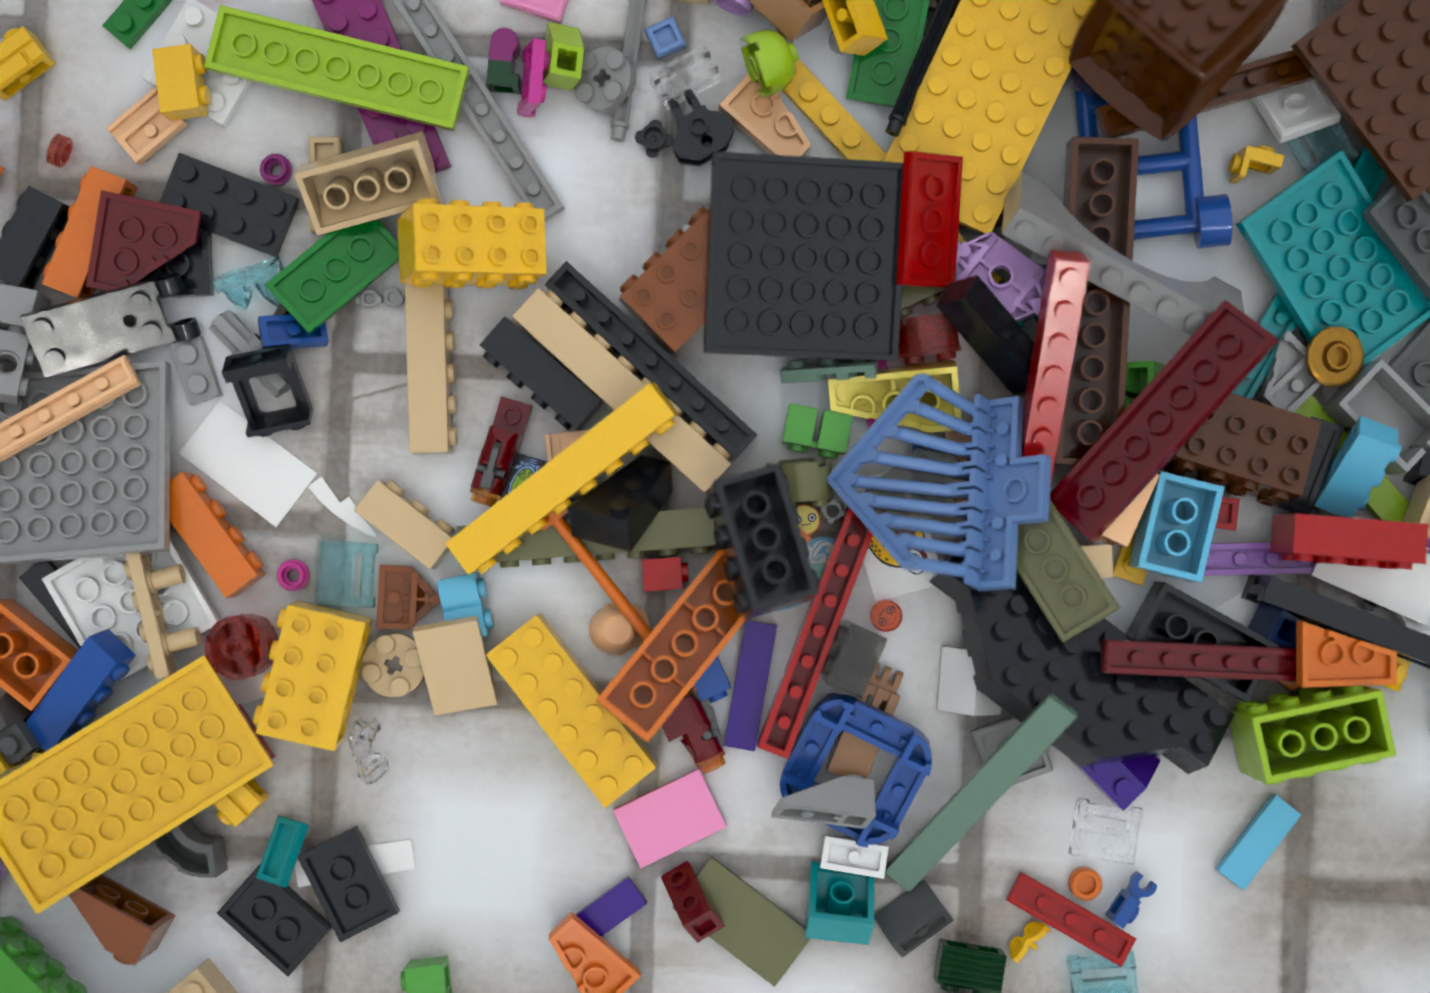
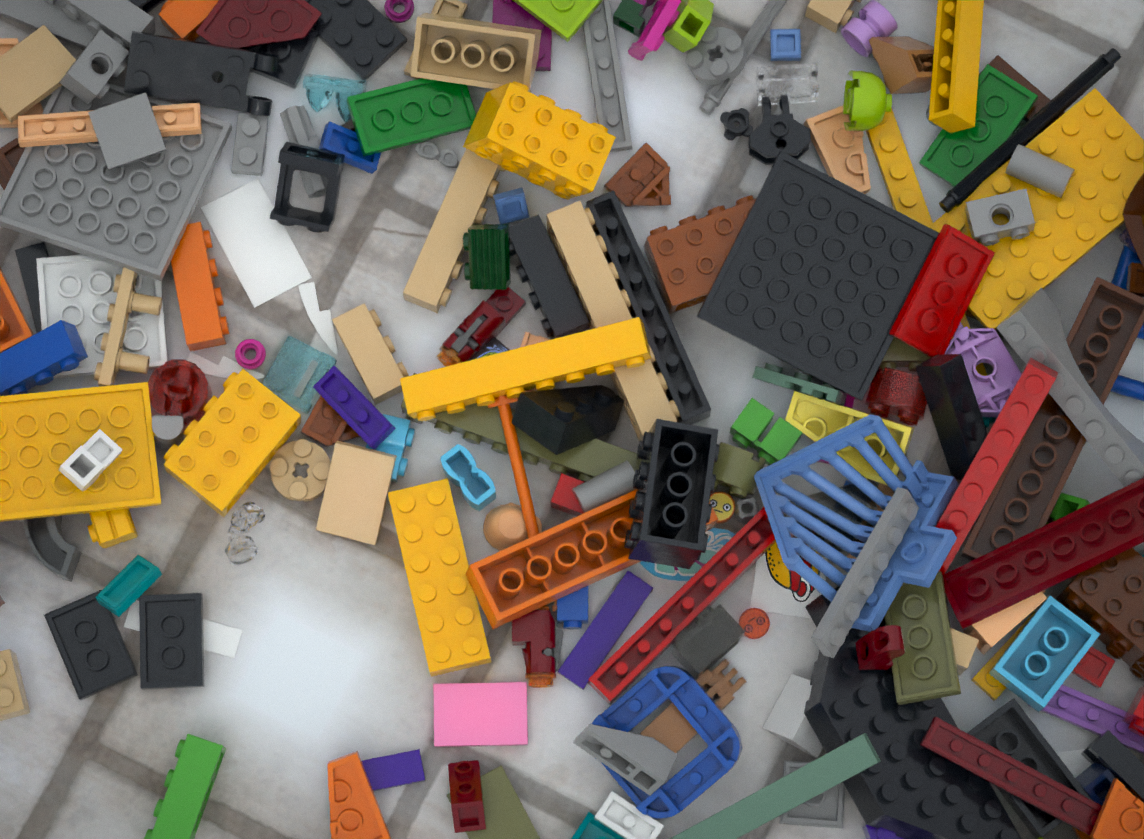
camera: 25 degrees right, 10 degrees down
(64, 417) = (127, 131): none -> light grey tile
(182, 765) = (90, 460): none -> white brick
(245, 692) = (168, 430): none -> light grey brick
(277, 598) = (224, 369): none -> white sticker
(415, 586) = (354, 407): none -> dark purple tile
(474, 318) = (511, 206): none -> medium blue tile
(475, 380) = (488, 256): none -> dark green brick
(547, 598) = (474, 483): none -> medium azure brick
(588, 235) = (642, 180): none -> dark orange slope
(690, 556) = (605, 487): none -> light grey brick
(963, 102) = (1012, 204): none -> light grey brick
(971, 55) = (1039, 171): none -> light grey brick
(979, 533) = (865, 573): none -> light grey plate
(1027, 599) = (883, 645): none -> dark red leg

